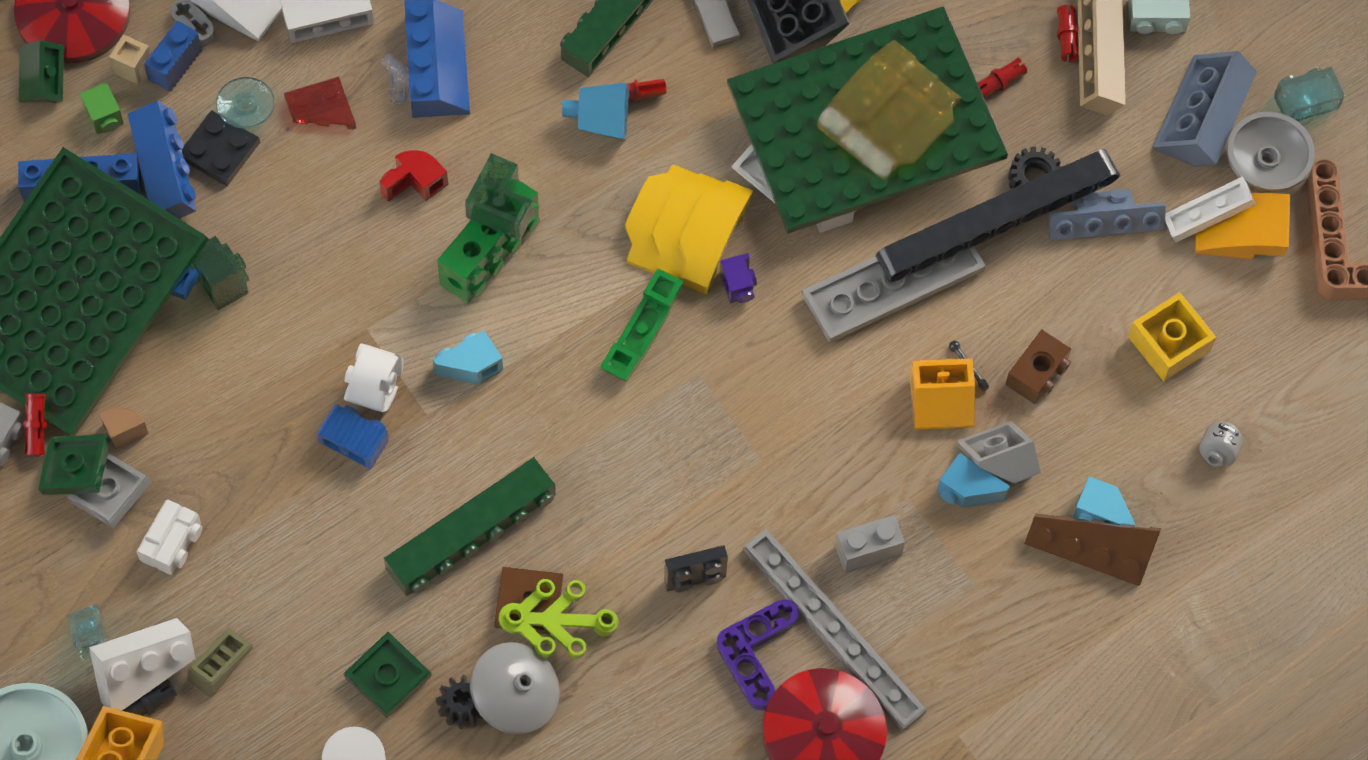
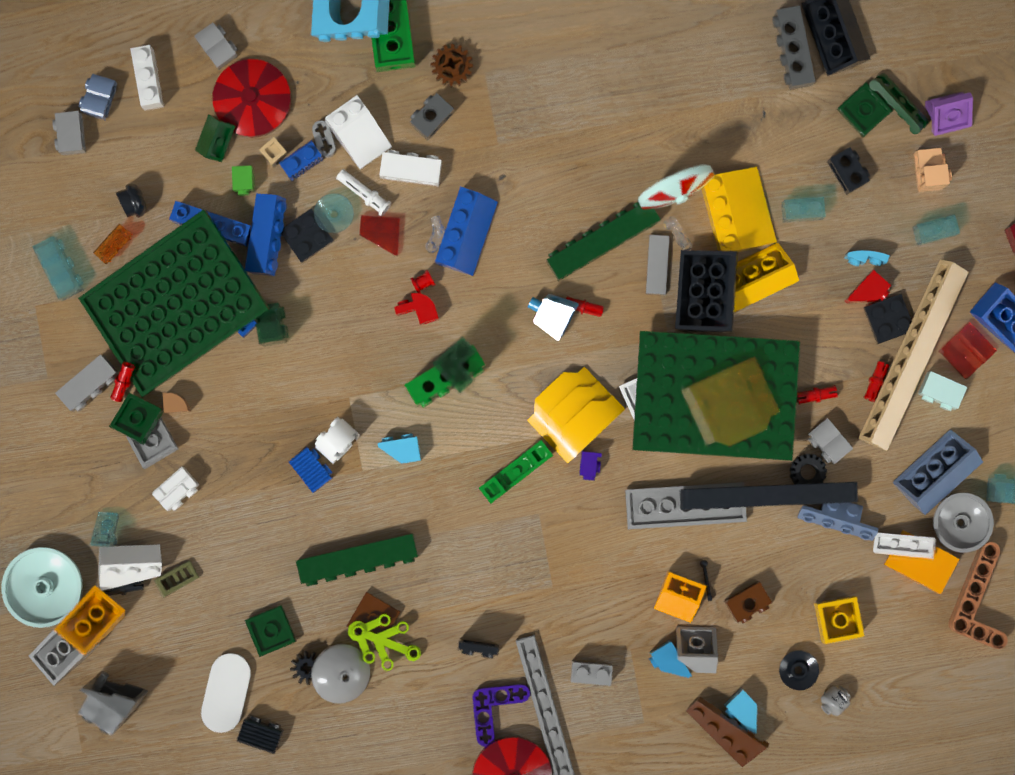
camera: 25 degrees right, 20 degrees up
(289, 64) = (371, 197): none -> white pin
(405, 139) = (422, 281): none -> red bush
(1045, 125) = (829, 441): none -> light grey brick
(1152, 413) = (808, 674): none -> black dish

